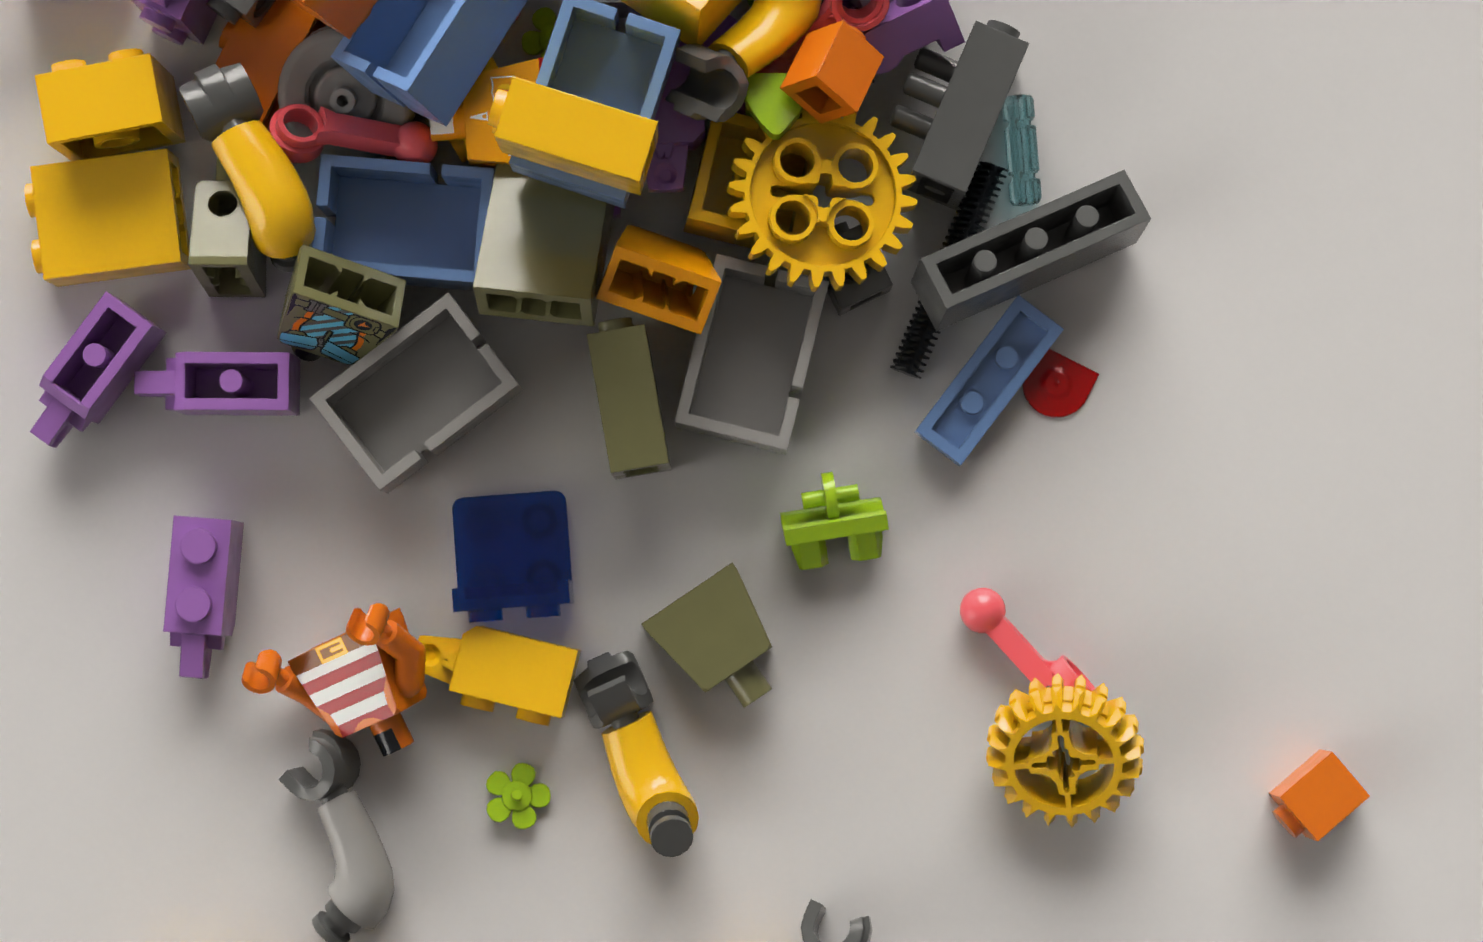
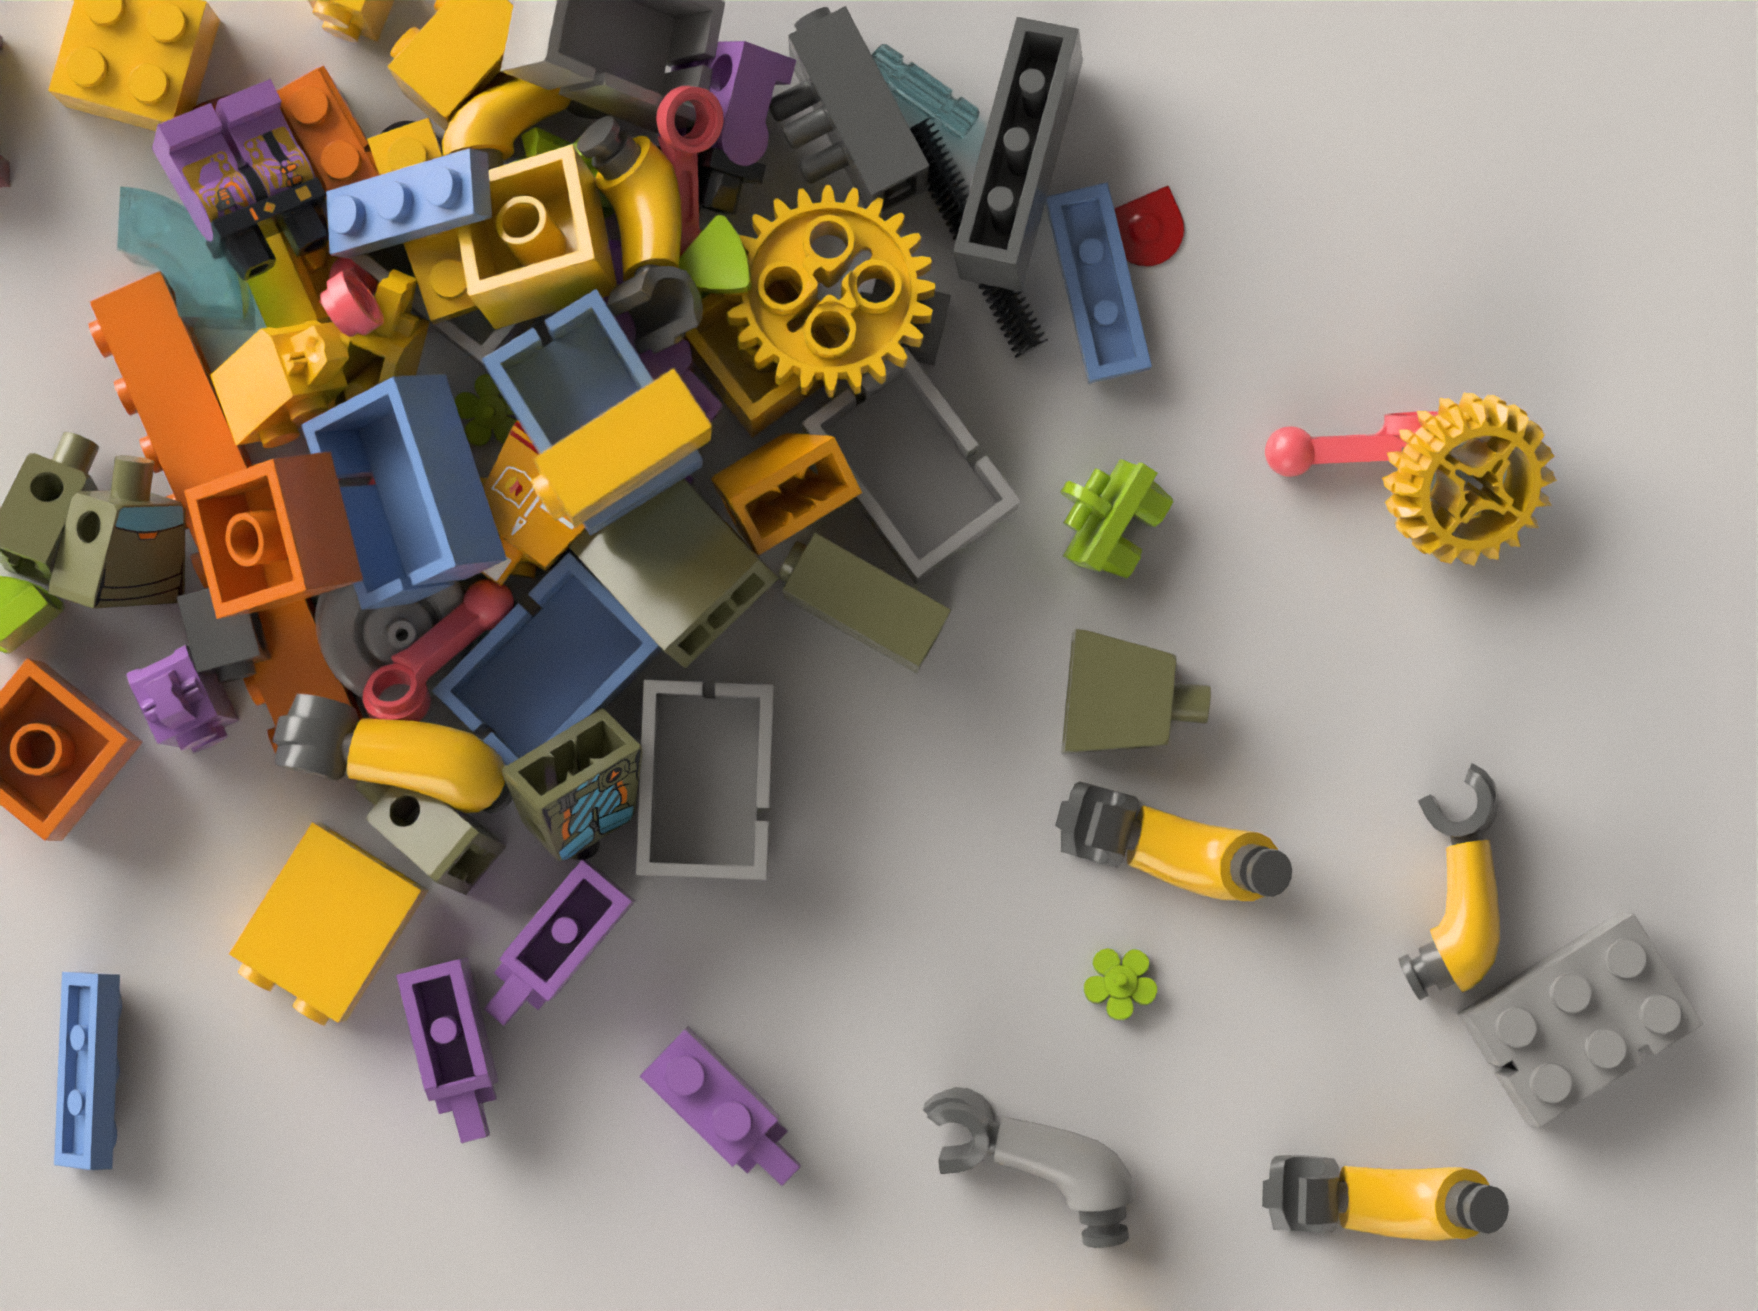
camera: 55 degrees left, 0 degrees up
(109, 106) = (233, 841): yellow brick -> none
(353, 678) = (907, 1036): torso -> none
(504, 669) = (1002, 903): yellow hinge -> none
(512, 555) = (911, 814): clear blue bracket -> none
(832, 71) = (734, 192): orange brick -> none
(1317, 796) = (1681, 299): orange brick -> none

